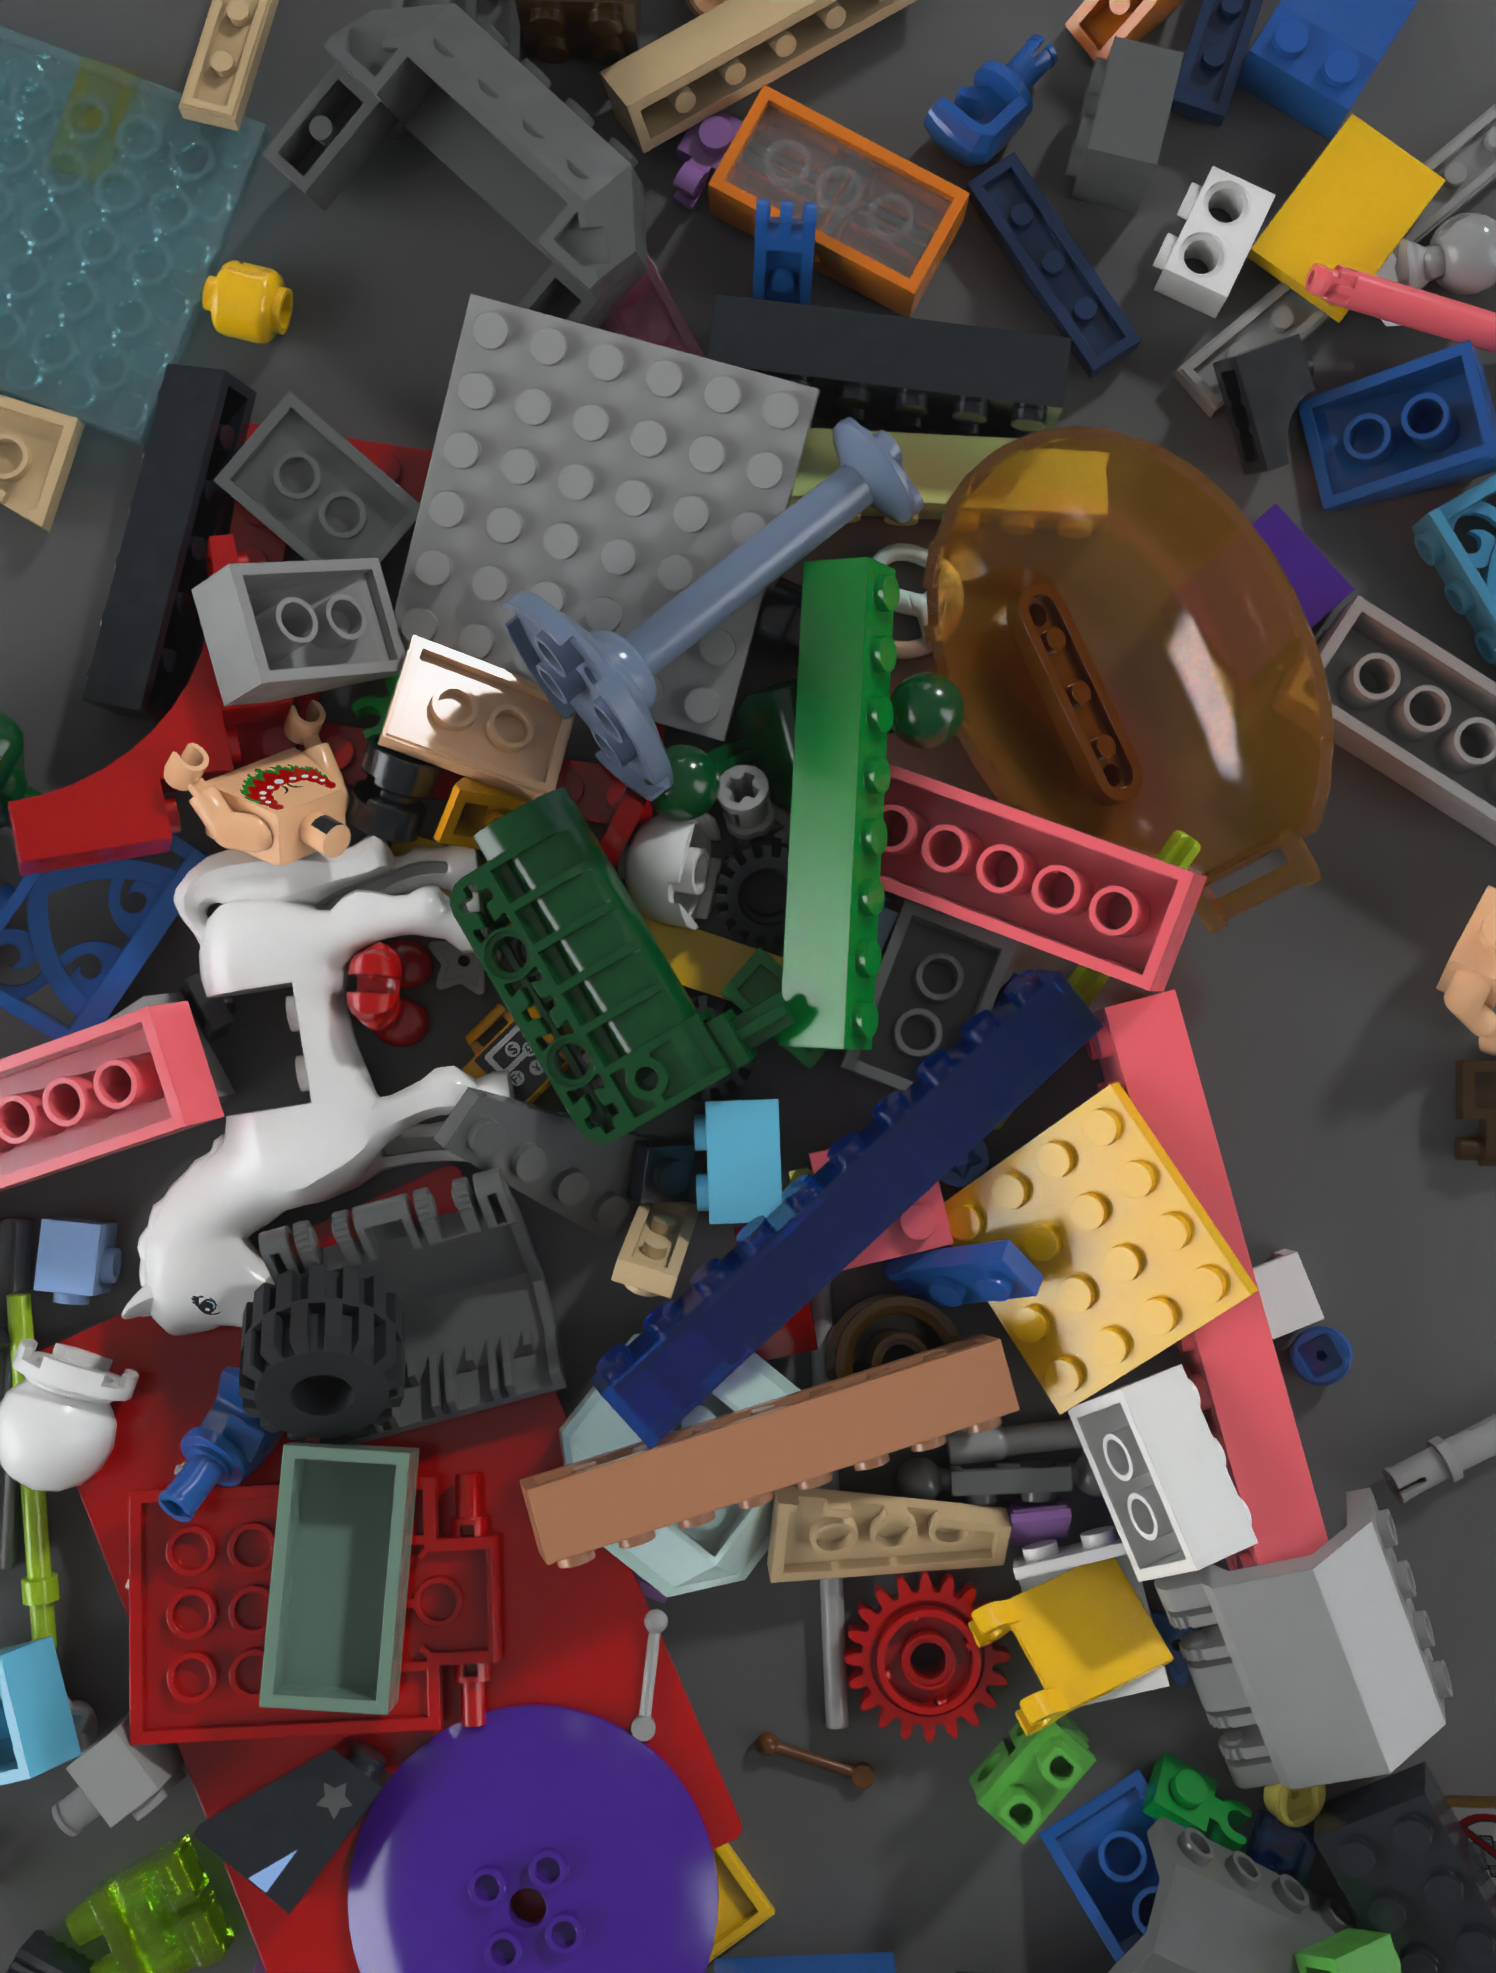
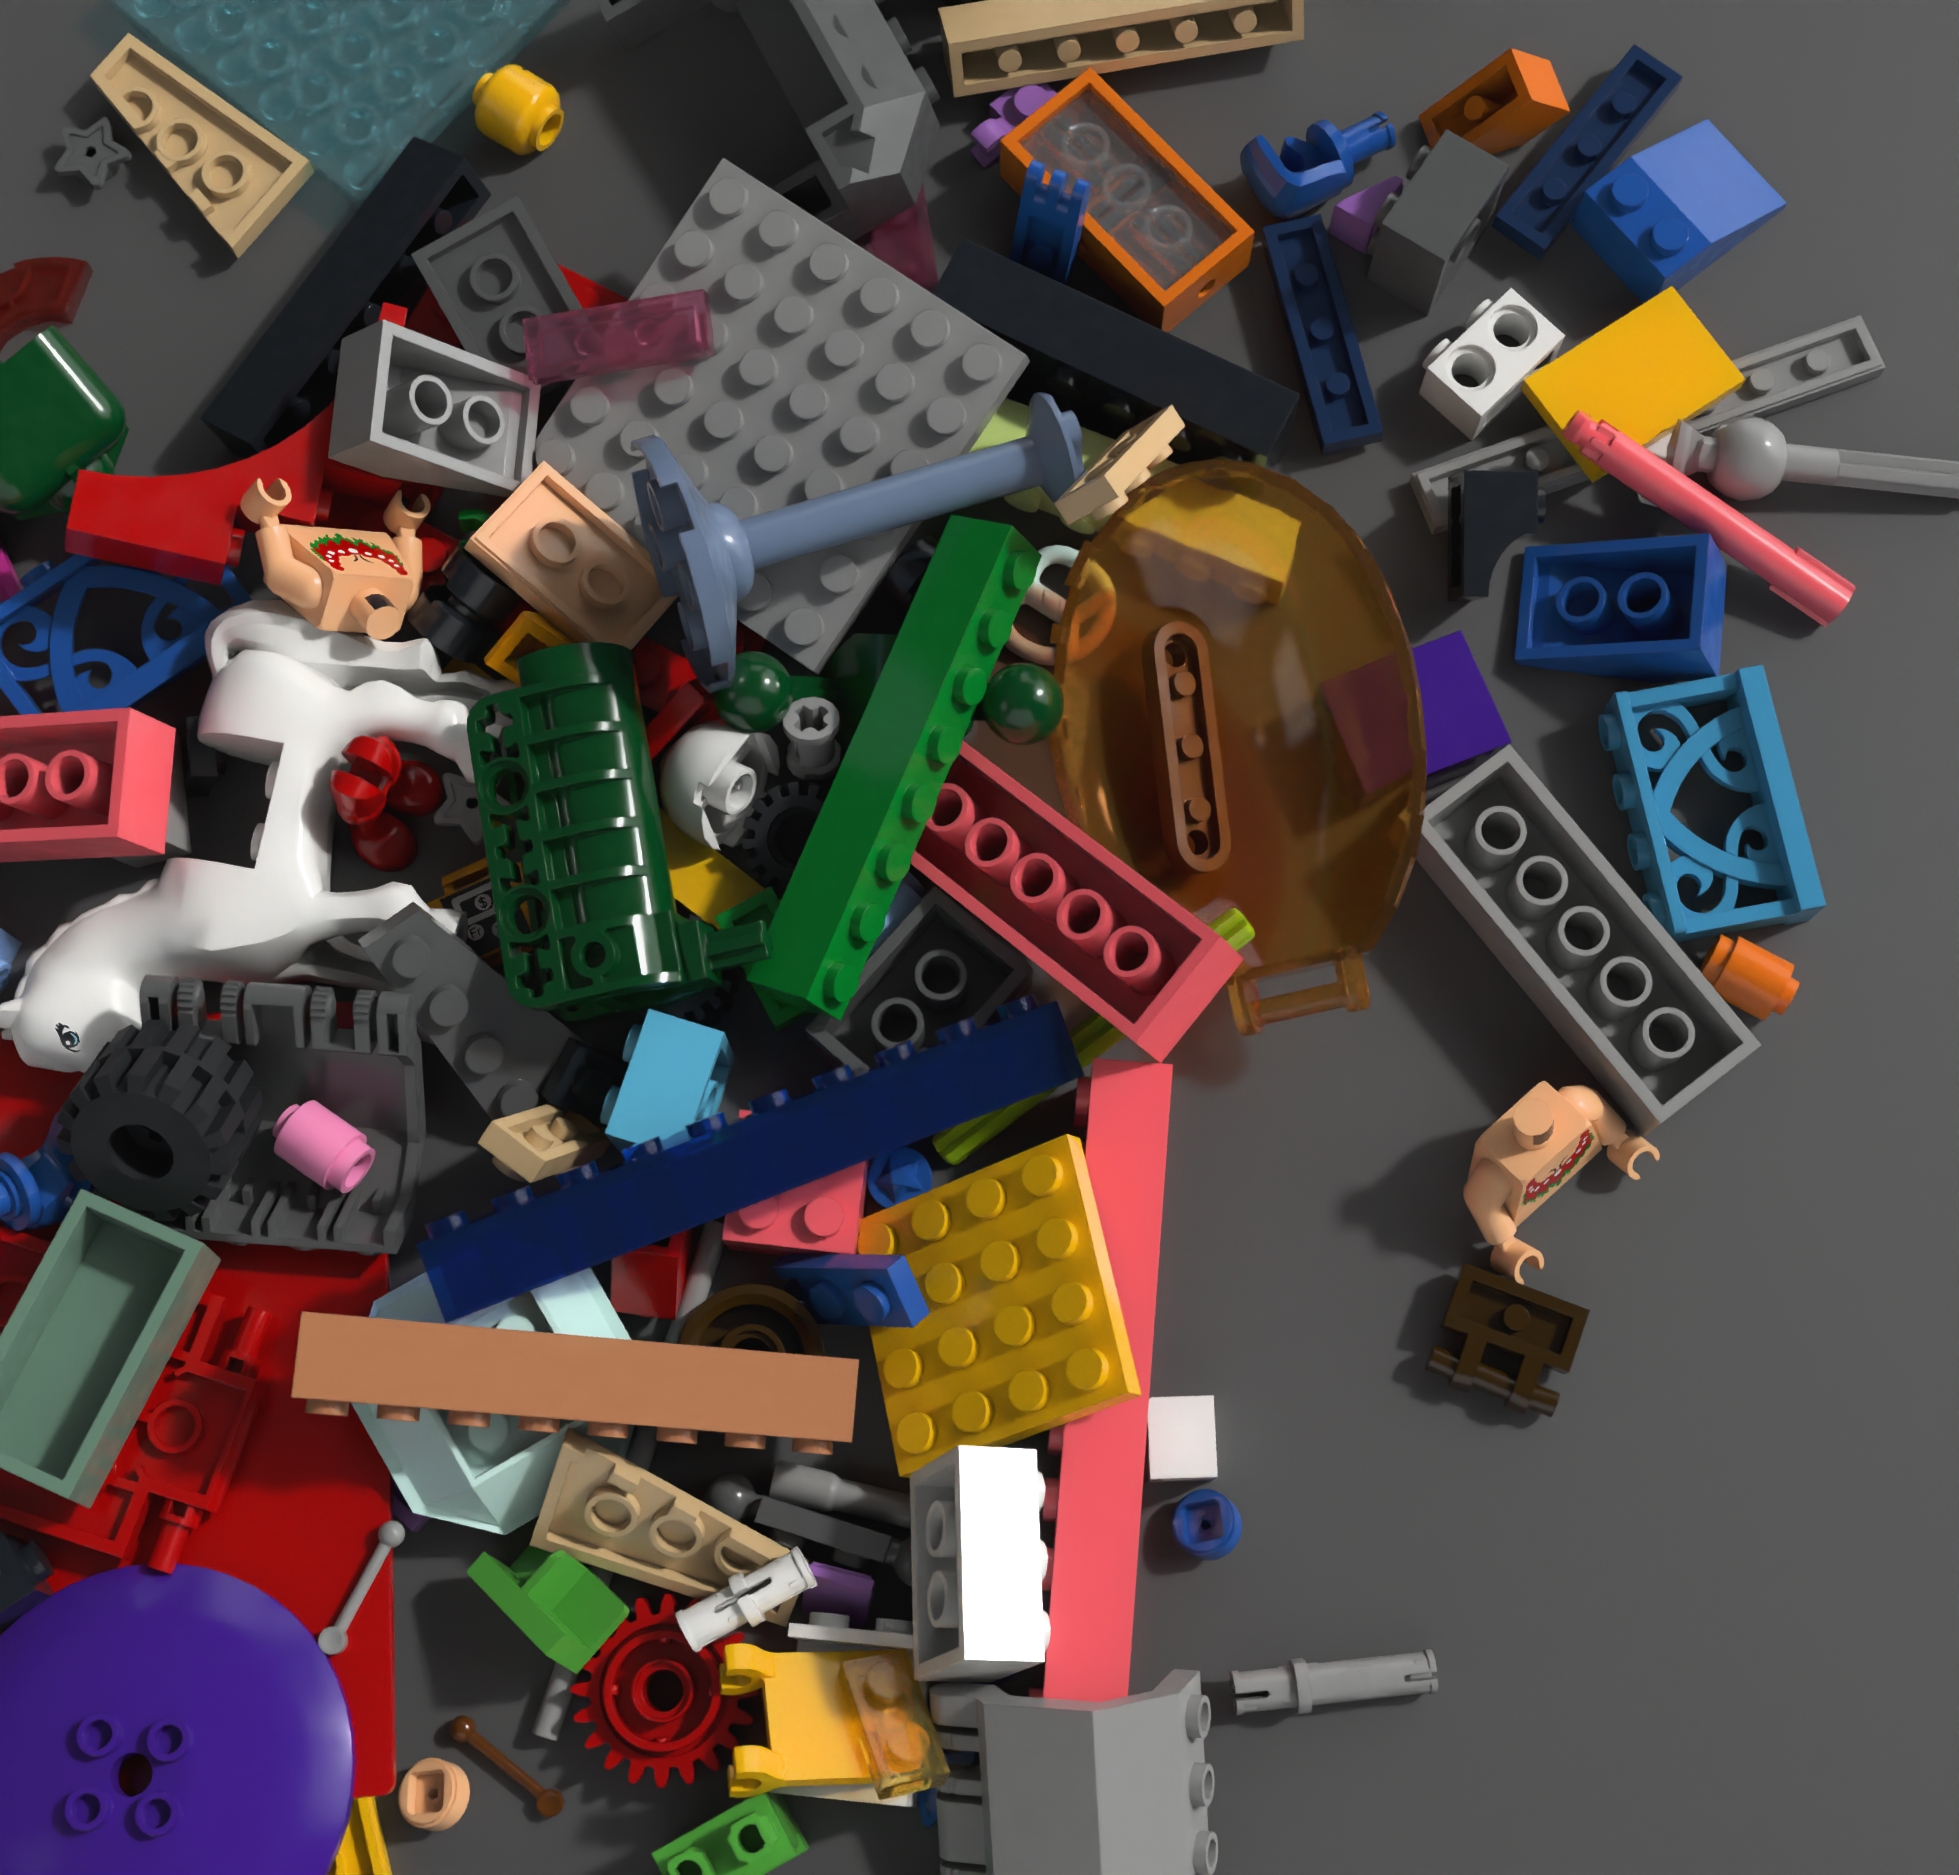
camera: 20 degrees right, 10 degrees down
(439, 497) = (618, 337): none -> clear pink tile
(464, 1317) = (322, 1146): none -> bright pink brick
(766, 1807) = (433, 1794): none -> light nougat tile
(807, 1622) = (553, 1602): none -> bright green panel
(943, 467) = (1121, 468): none -> tan plate
(944, 1597) = (746, 1599): none -> white pin
(1054, 139) = (1355, 215): none -> medium lavender slope
(1135, 1624) = (893, 1724): none -> clear yellow plate

